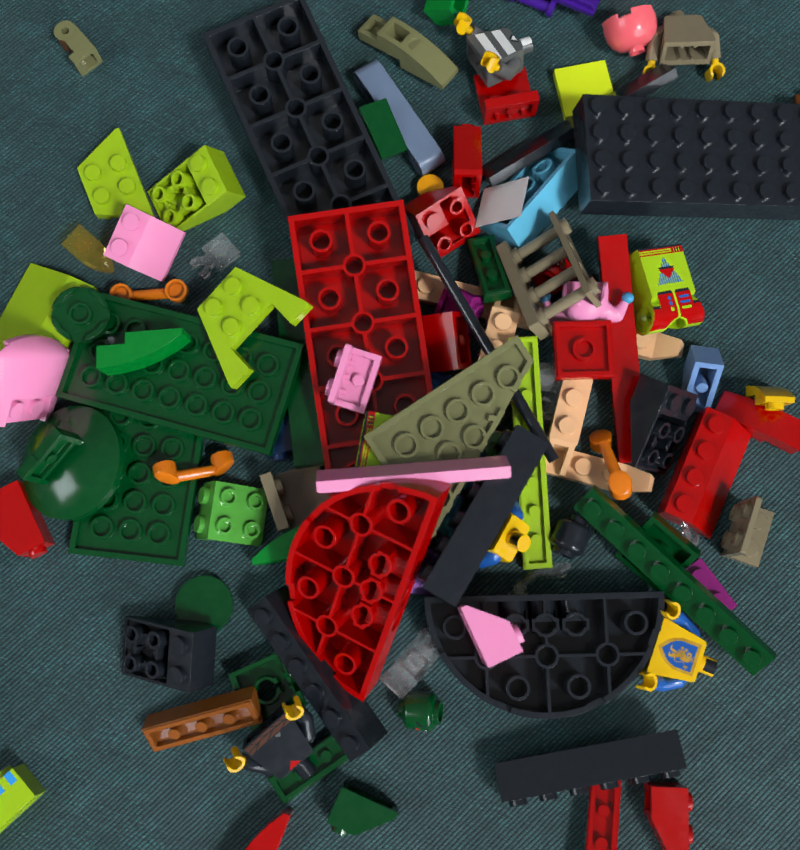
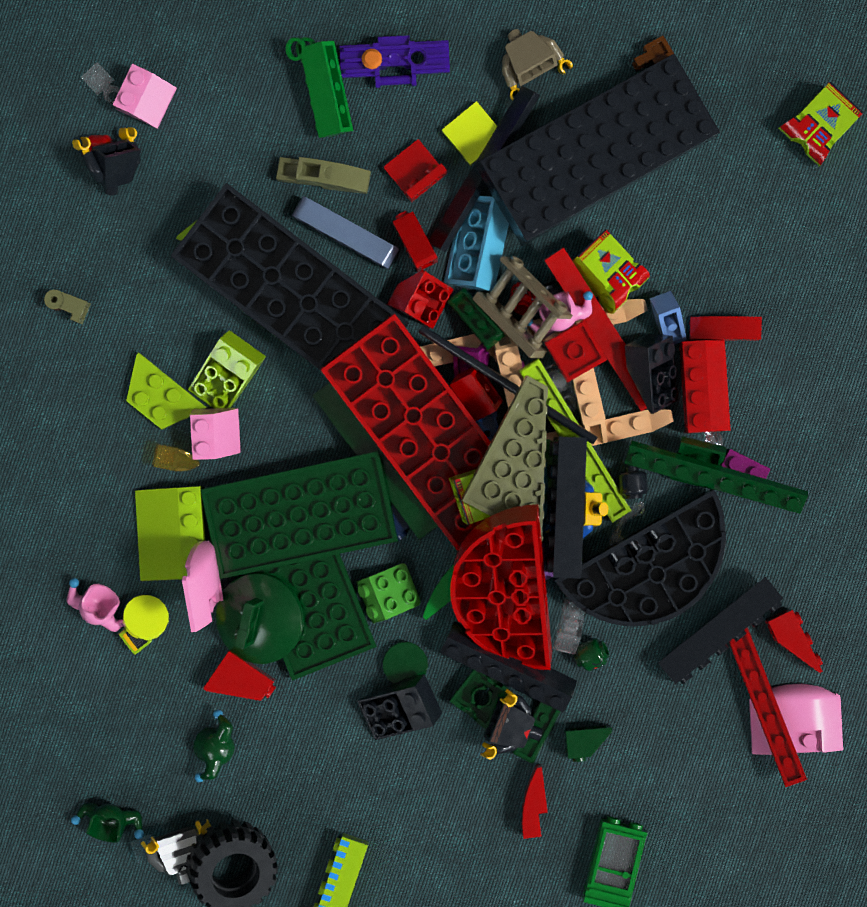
camera: 30 degrees left, 10 degrees up
(81, 314) = (206, 512): dark green tile -> none
(140, 350) = (265, 517): green slope -> none
(167, 472) = (330, 588): orange bar -> none
(174, 290) = (256, 455): orange bar -> none
(203, 719) = (449, 738): dark orange slope -> none
(218, 254) = (269, 409): clear plate -> none
(237, 310) = (318, 454): lime wing -> none
(292, 496) = (429, 557): dark tan bracket -> none
(353, 379) = (431, 460): bright pink bracket -> none
(383, 129) = (341, 254): dark green brick -> none
(429, 183) = (397, 274): light orange tile -> none
(446, 471) = (525, 497): bright pink tile -> none
(492, 636) = (613, 582): bright pink slope -> none
(493, 53) = (390, 142): dark grey torso -> none
(502, 202) = (459, 262): white sticker -> none
(619, 481) = (647, 429): orange bar -> none
(631, 31) = (486, 71): coral cylinder -> none
(676, 653) = (743, 525): torso -> none
(747, 532) = (754, 413): dark tan bracket -> none
(771, 397) = (723, 309): yellow slope -> none

